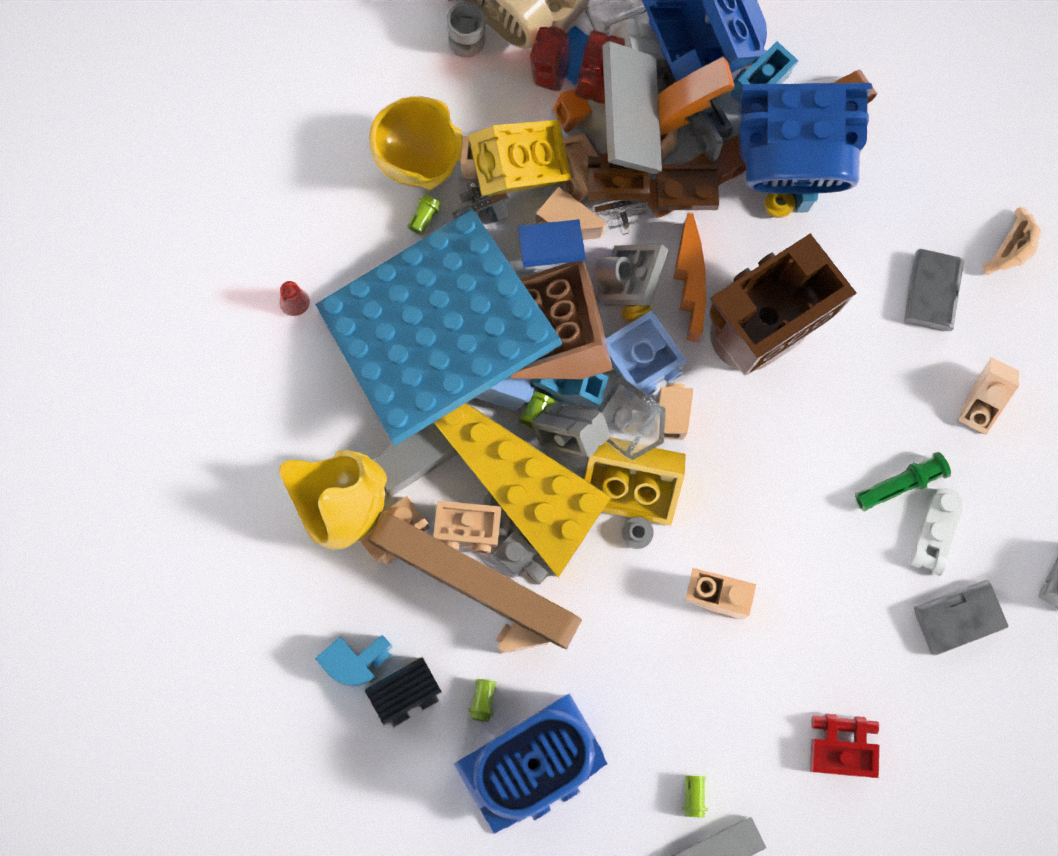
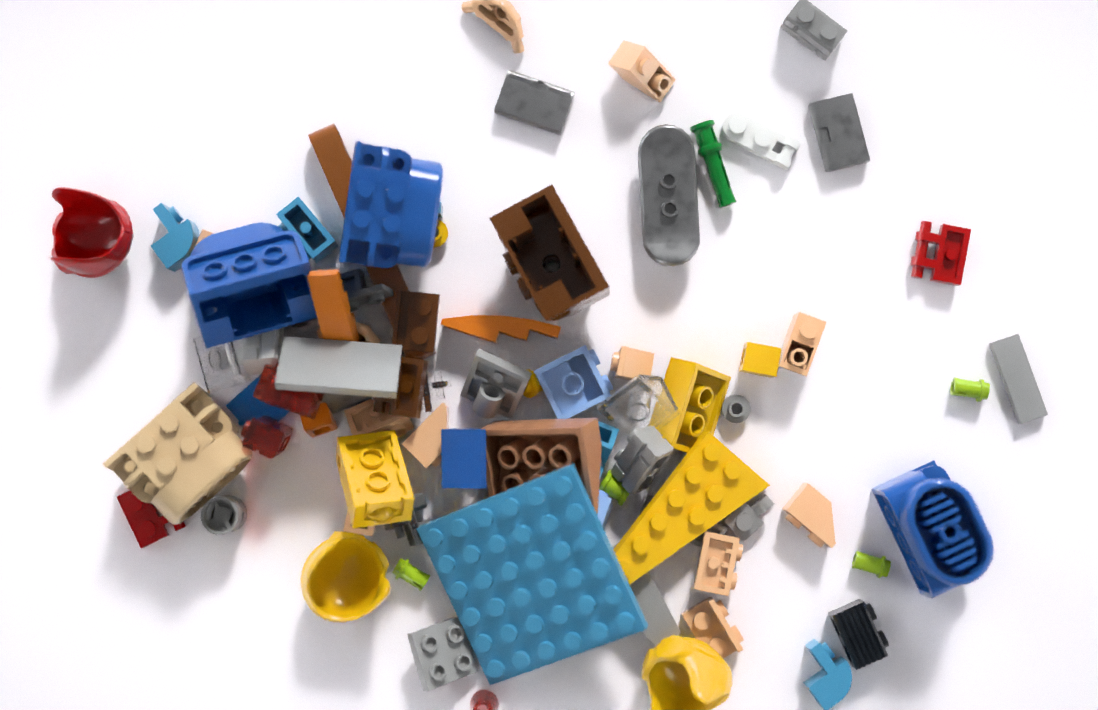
camera: 75 degrees left, 10 degrees up
(344, 249) = (442, 653): none -> light grey plate
(475, 580) = (773, 564): medium nougat beam -> none
(695, 550) = (760, 359): none -> yellow panel
(860, 433) = (668, 195): none -> flat silver piece

